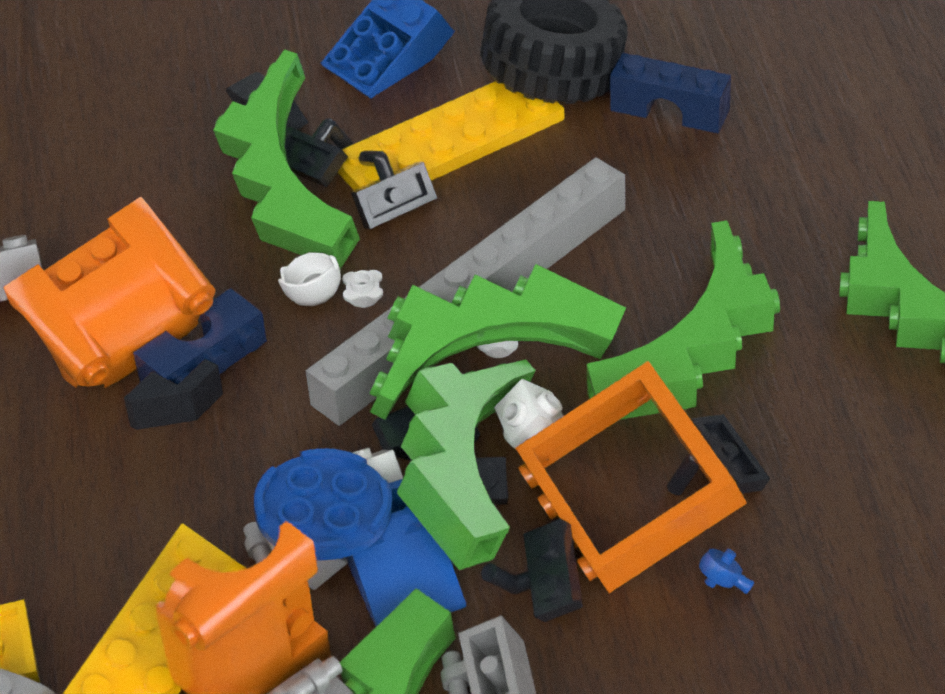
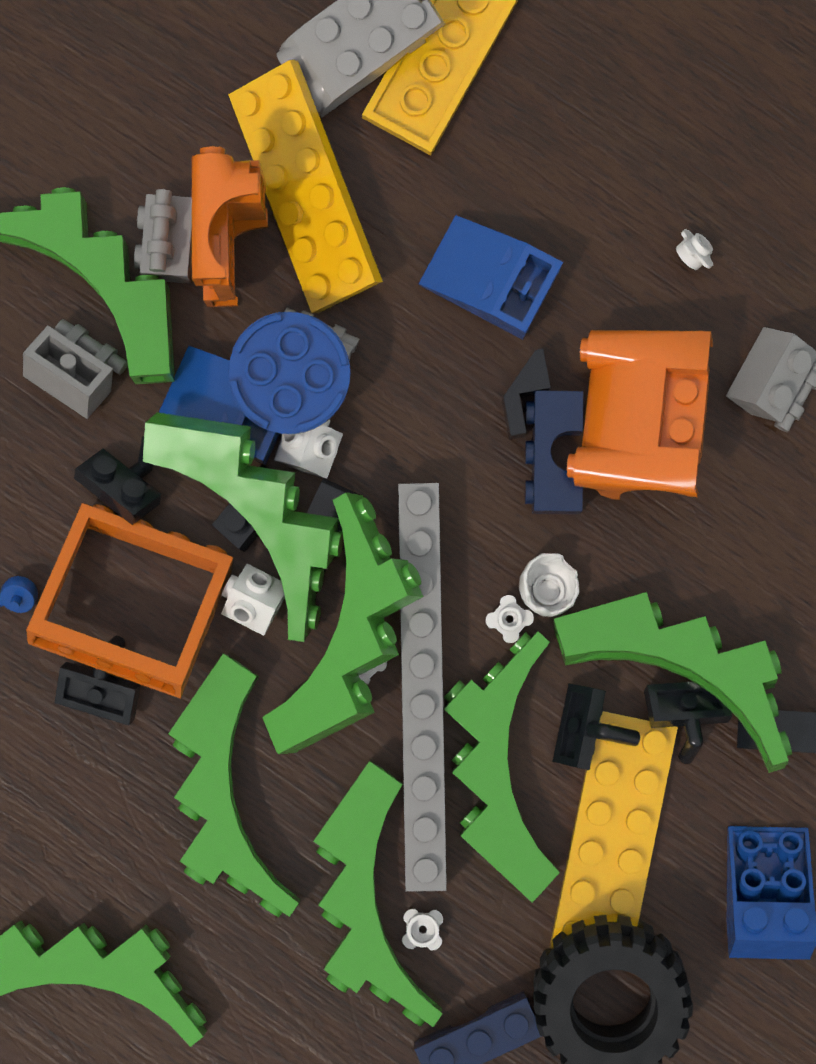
camera: 130 degrees right, 40 degrees up
(94, 479) = (491, 275): none -> blue slope
(435, 243) = (498, 827): none -> bright green arch
(636, 239) = (351, 900): none -> bright green arch
(641, 172) = (428, 939): none -> white plate

